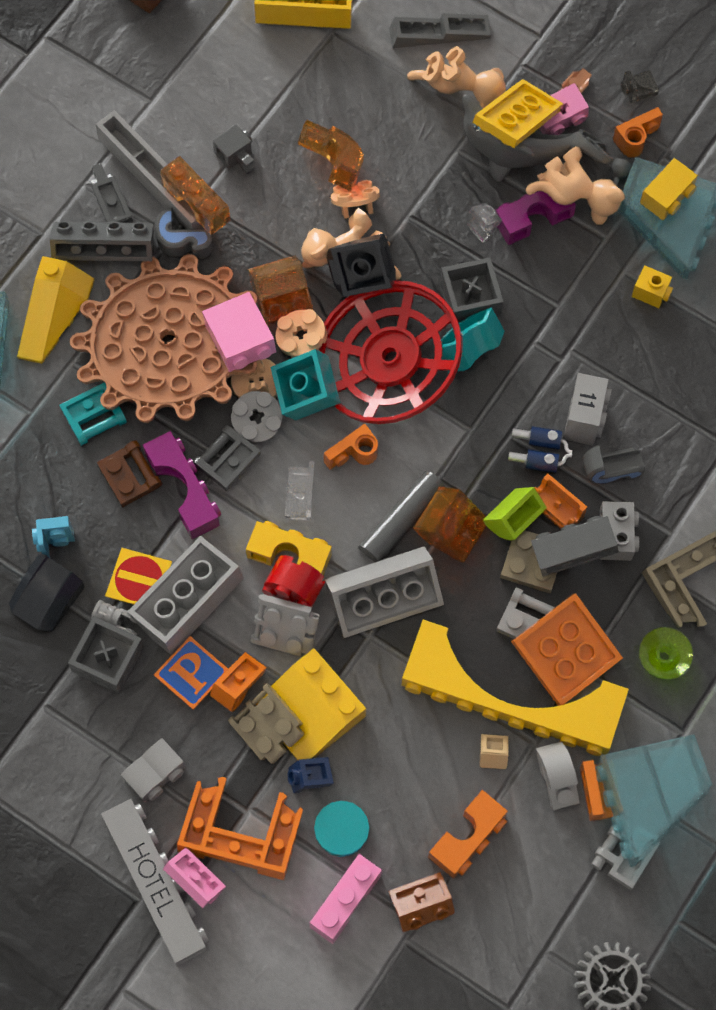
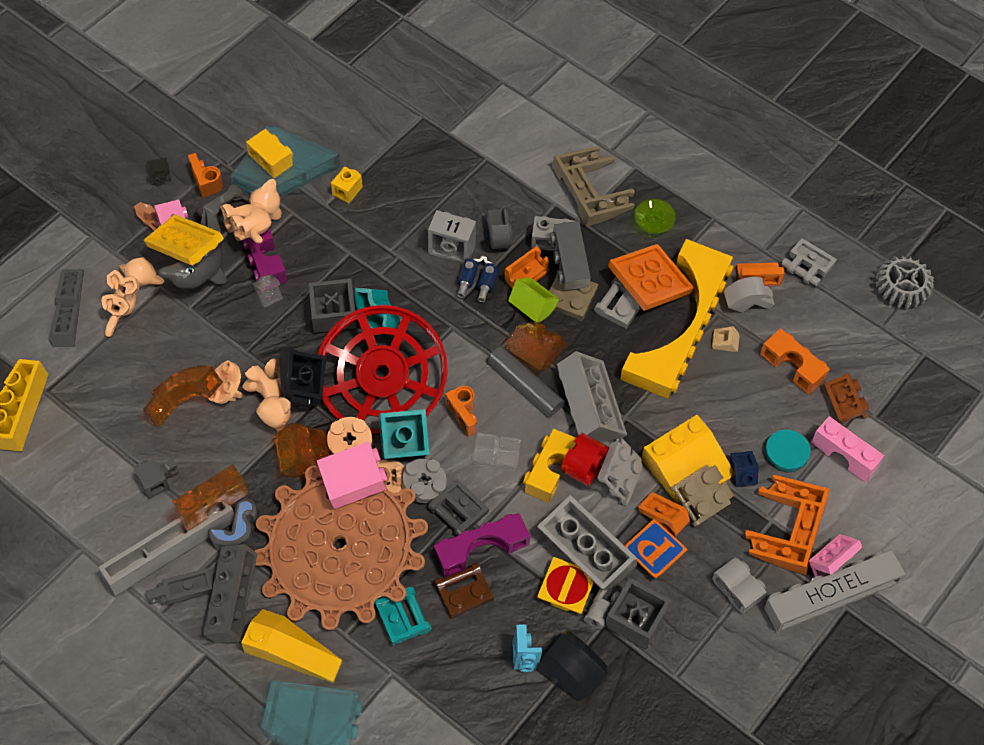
camera: 85 degrees left, 10 degrees down
(651, 791) = (767, 235): clear light blue slope -> none

